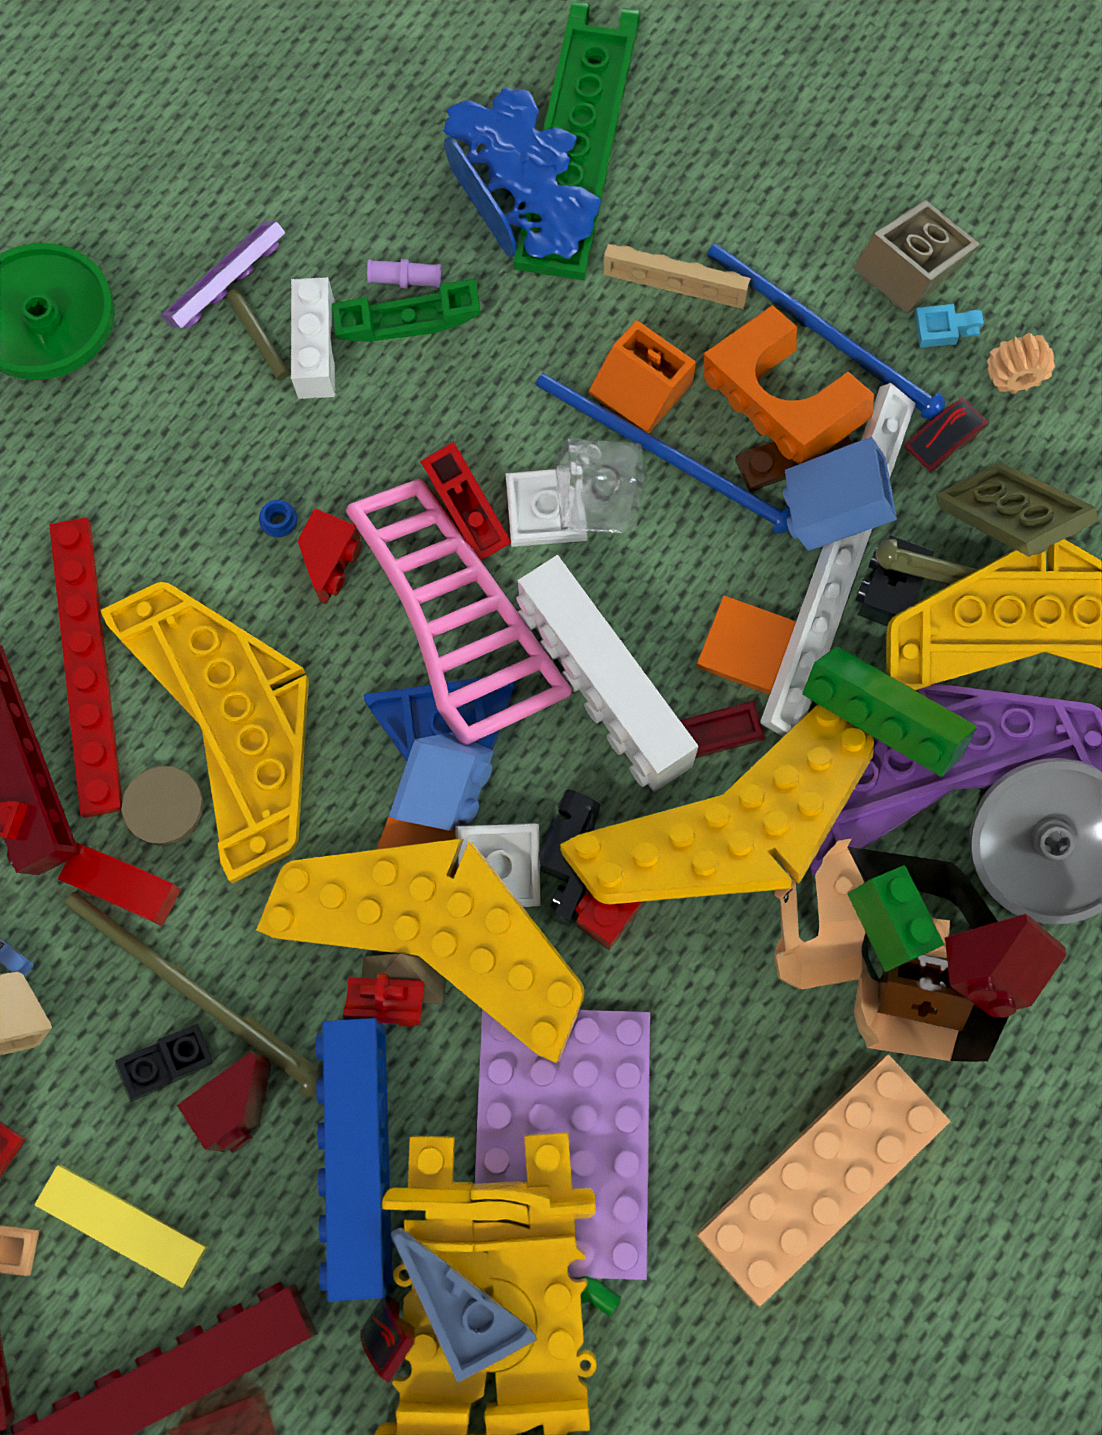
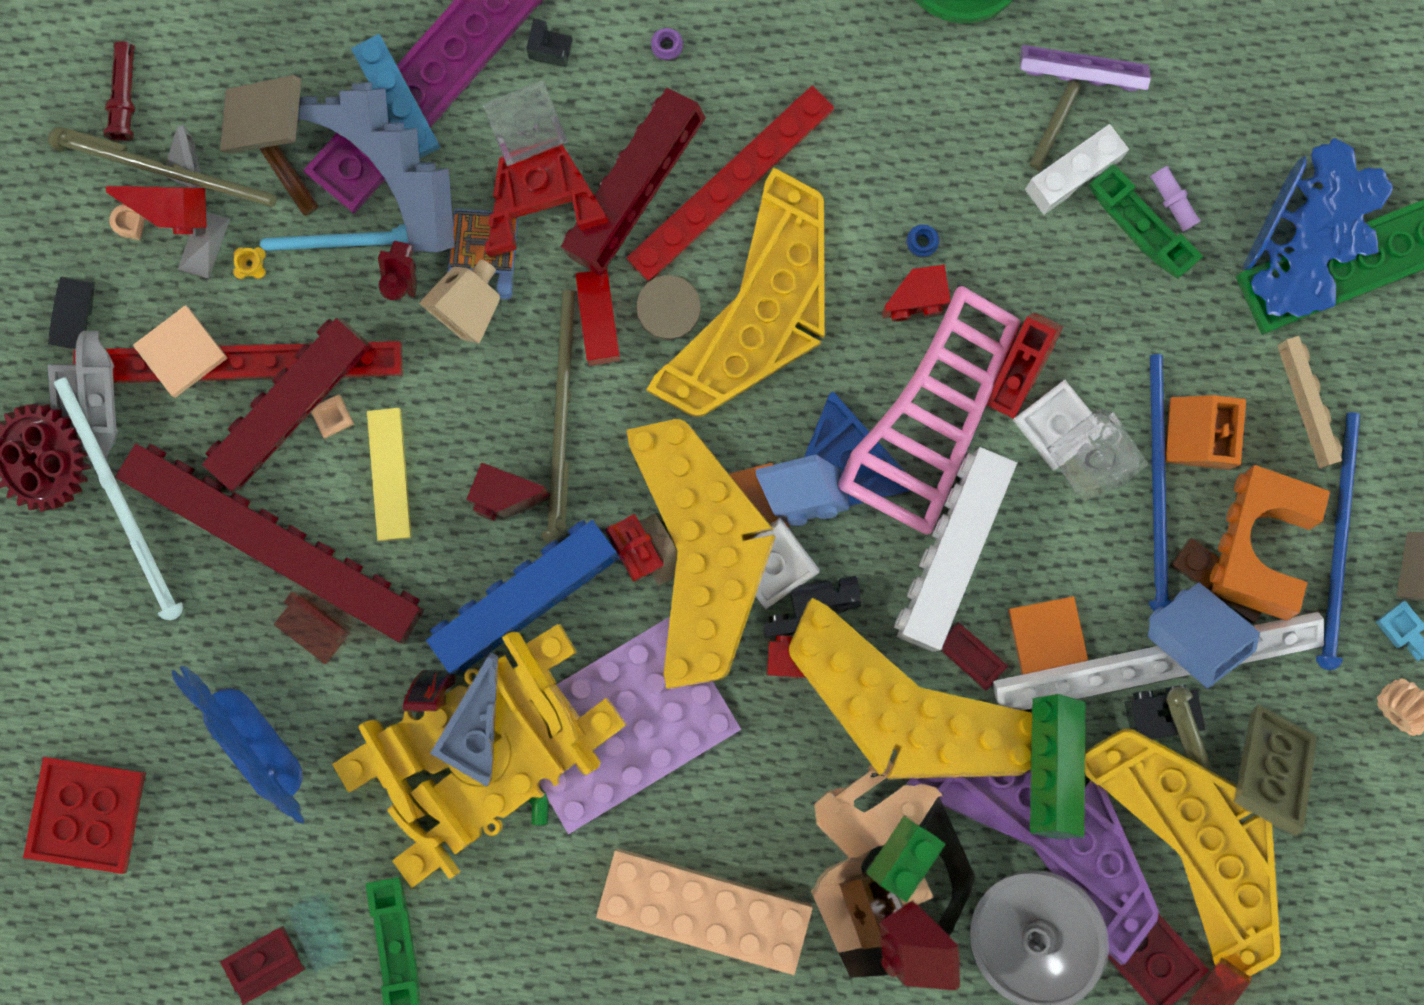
camera: 55 degrees right, 10 degrees up
(163, 1062) = (504, 429): black slope -> none
(946, 434) = (1312, 684): black slope -> none

